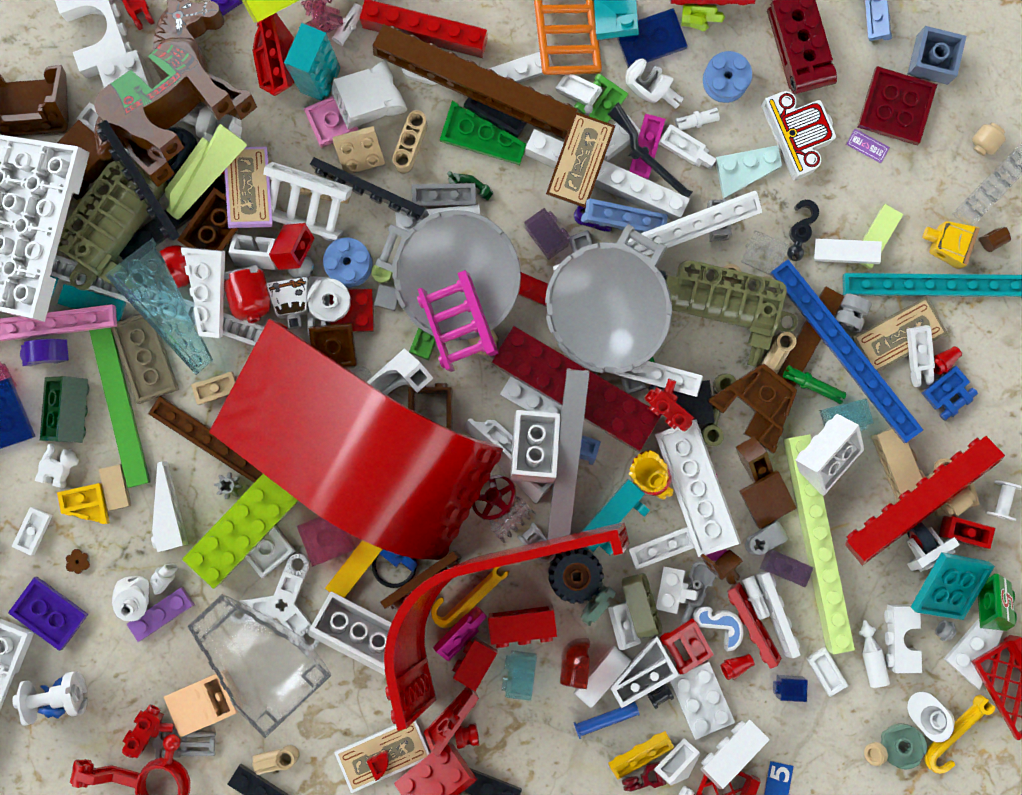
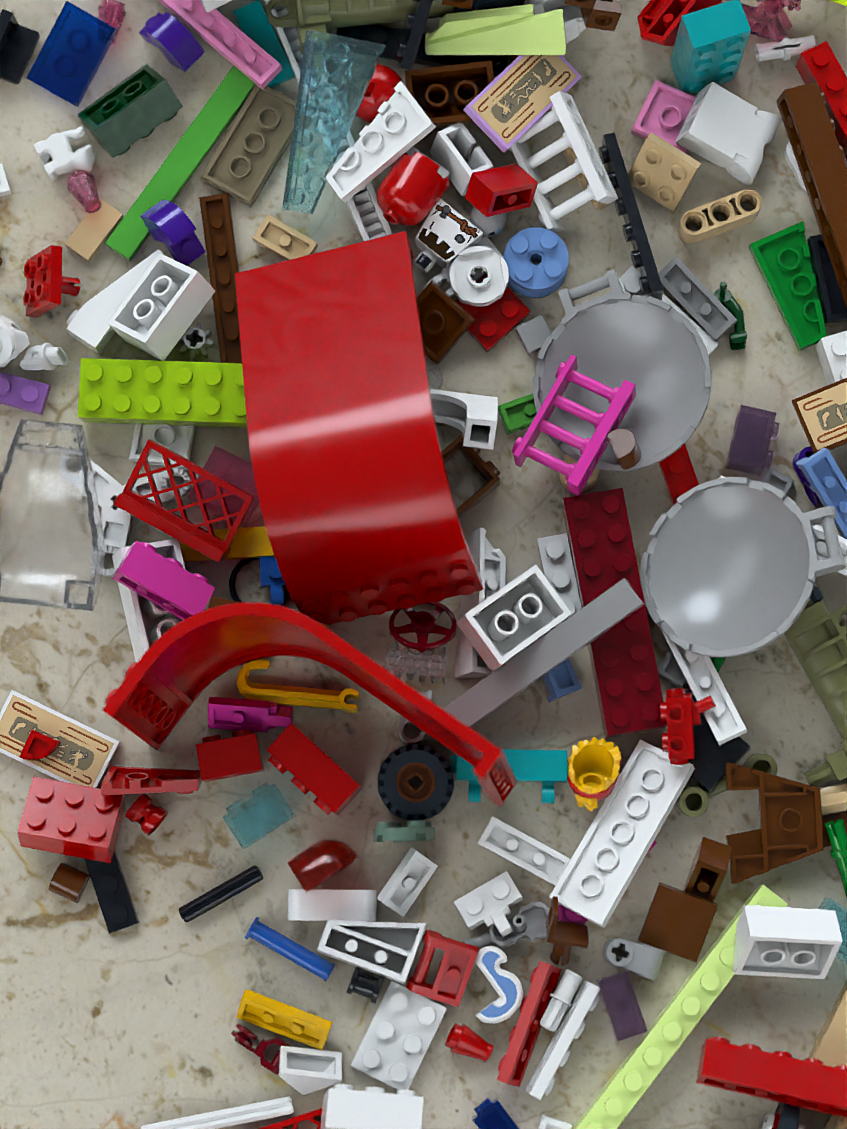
camera: 50 degrees right, 5 degrees down
(85, 503) = (52, 212): yellow wing -> none
(86, 473) = (84, 189): none -> clear pink cone
(121, 540) = (46, 282): none -> red plate
(155, 443) = (174, 229): none -> dark purple brick
(192, 489) = (161, 306): none -> white brick
(318, 588) = (173, 524): none -> red fence
(349, 621) = (163, 581): none -> dark pink brick
(381, 275) = (553, 307): yellowish green tile -> none
(495, 306) = (625, 448): none -> brick
(544, 731) = (220, 893): none -> black axle
(642, 606) = (444, 882): olive beam -> none

